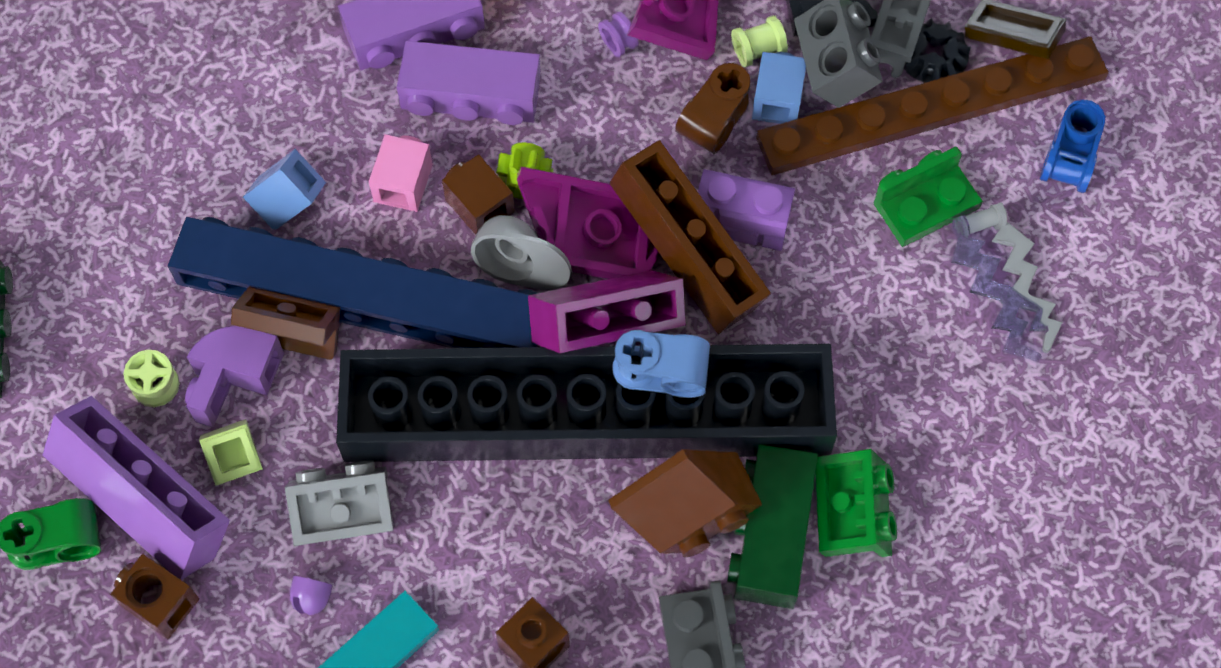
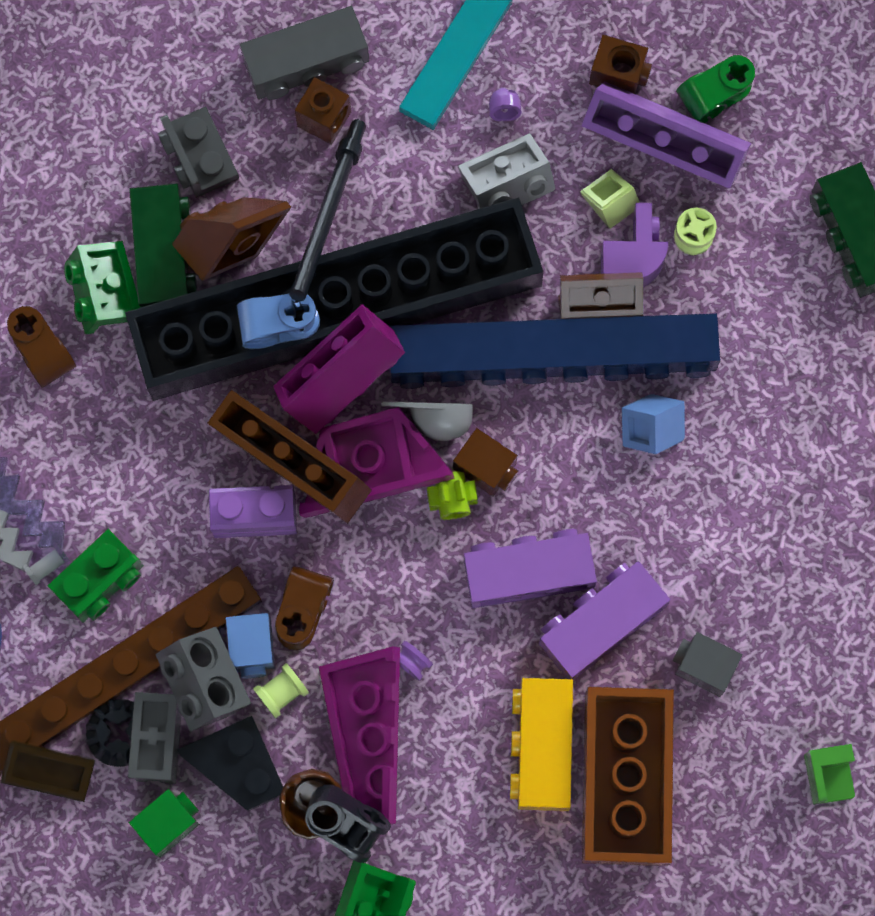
camera: 165 degrees right, 10 degrees up
(401, 172) = (559, 466): bright pink brick -> none
(518, 576) = (346, 156): none -> black bar
(942, 447) = (41, 350): none -> reddish brown piece

